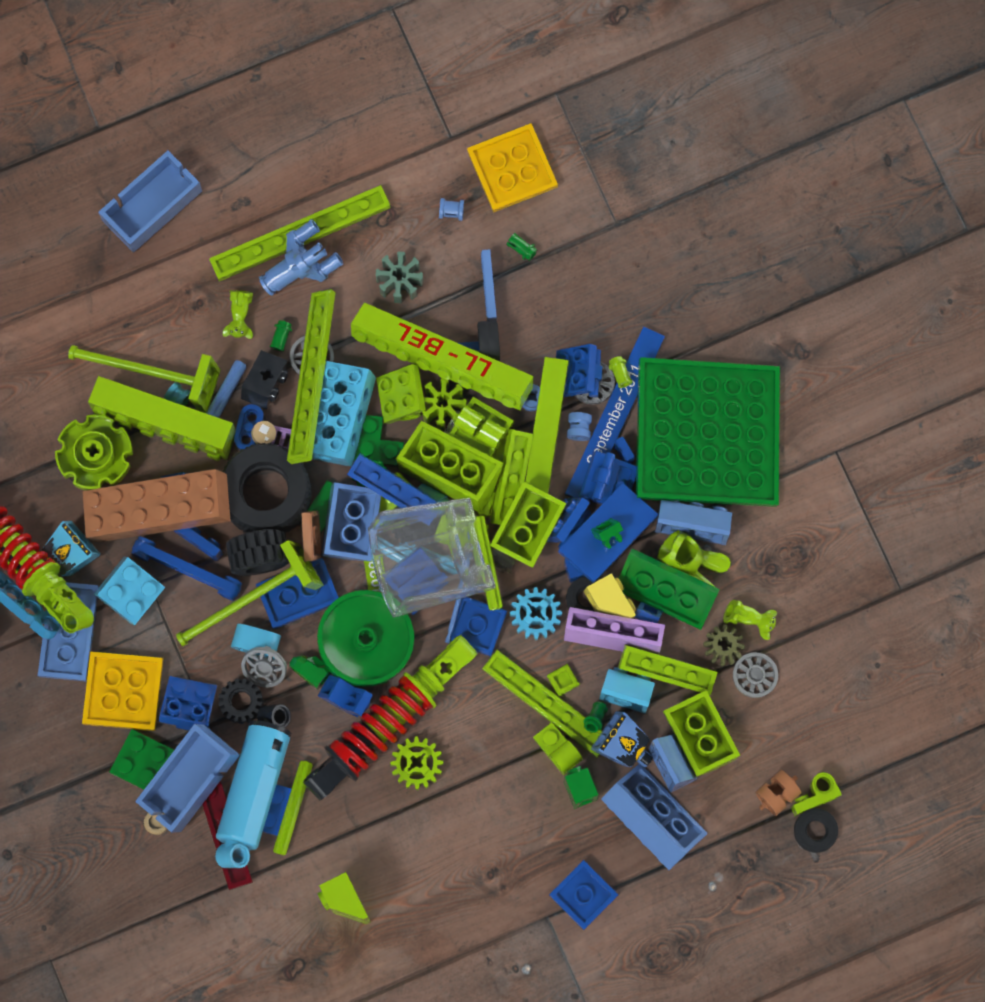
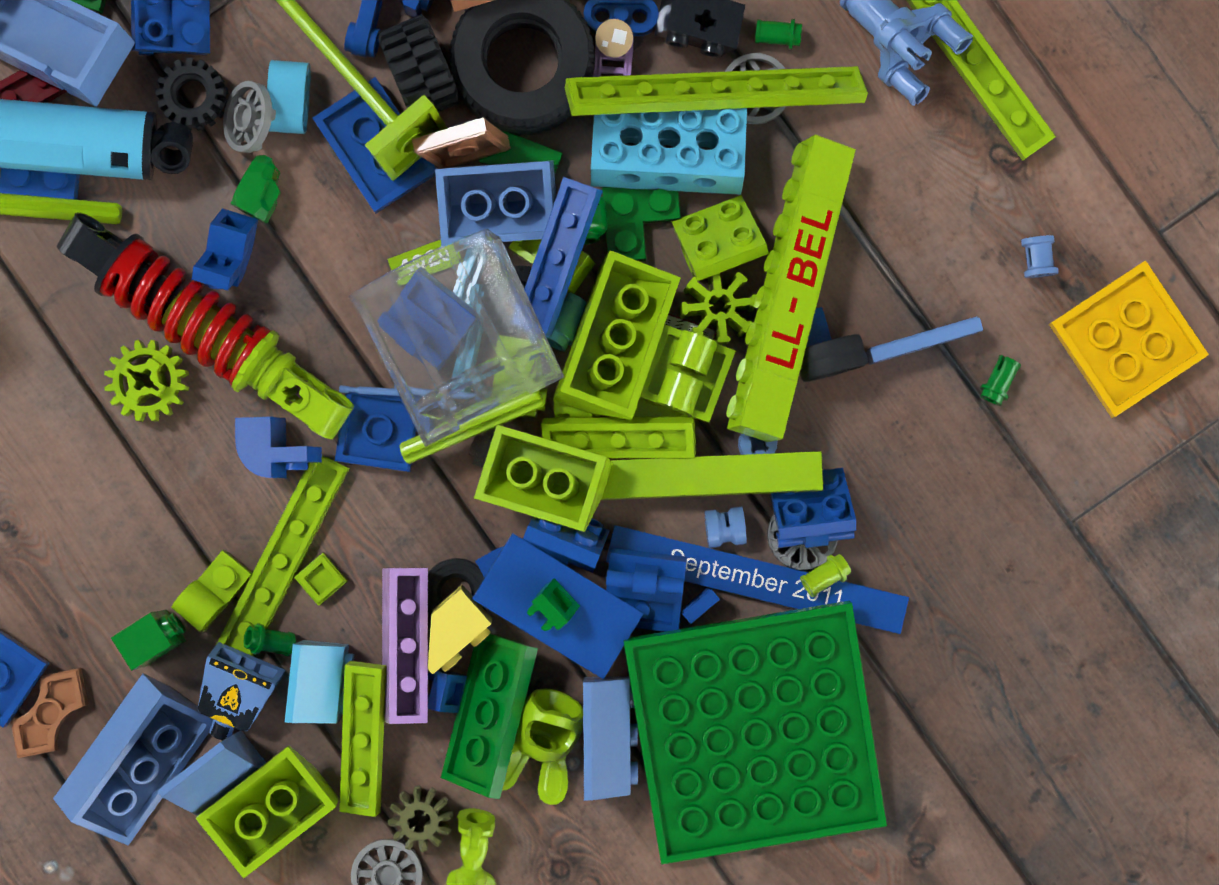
camera: 75 degrees right, 10 degrees up
(363, 639) = (312, 255): green dish -> none
(408, 278) = (900, 187): sand green gear -> none
(475, 698) = (264, 450): none -> brick
(526, 603) = (428, 526): medium azure gear -> none
(605, 858) = (40, 726): none -> nougat tile

